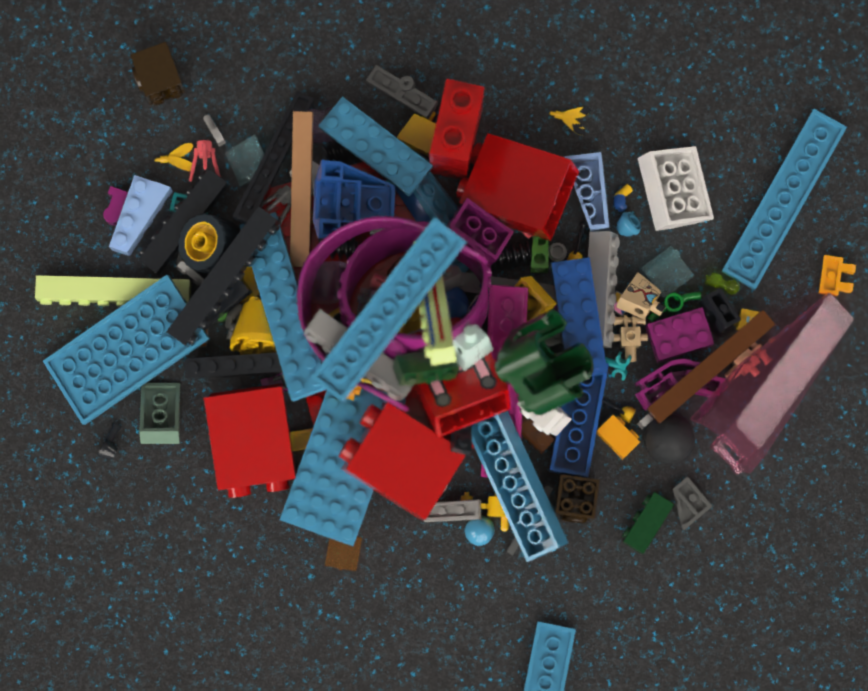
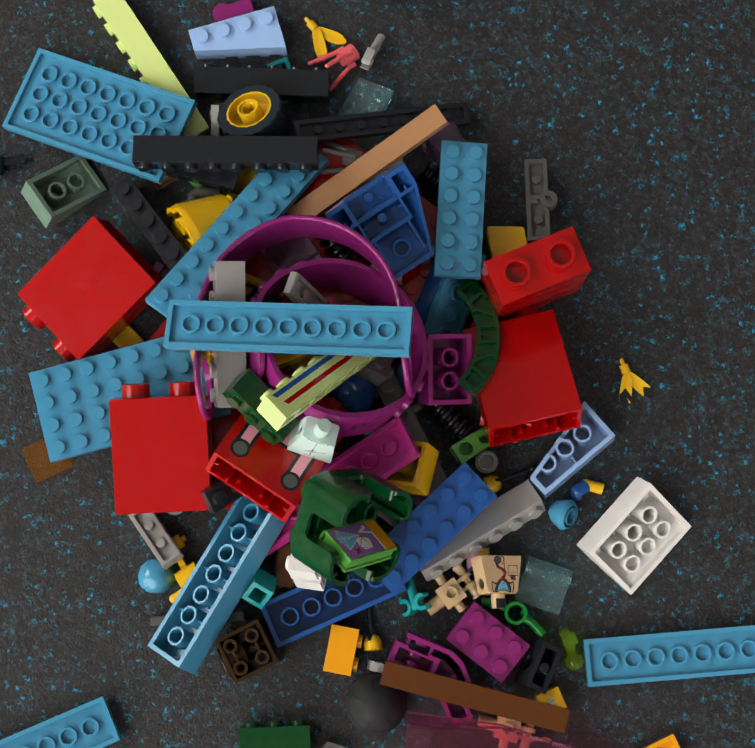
camera: 60 degrees right, 0 degrees up
(364, 288) = (301, 291): none -> light grey tile
(476, 189) = (488, 337): none -> dark green tile
(541, 460) = (260, 589): none -> teal brick
(562, 364) = (359, 544): none -> piece

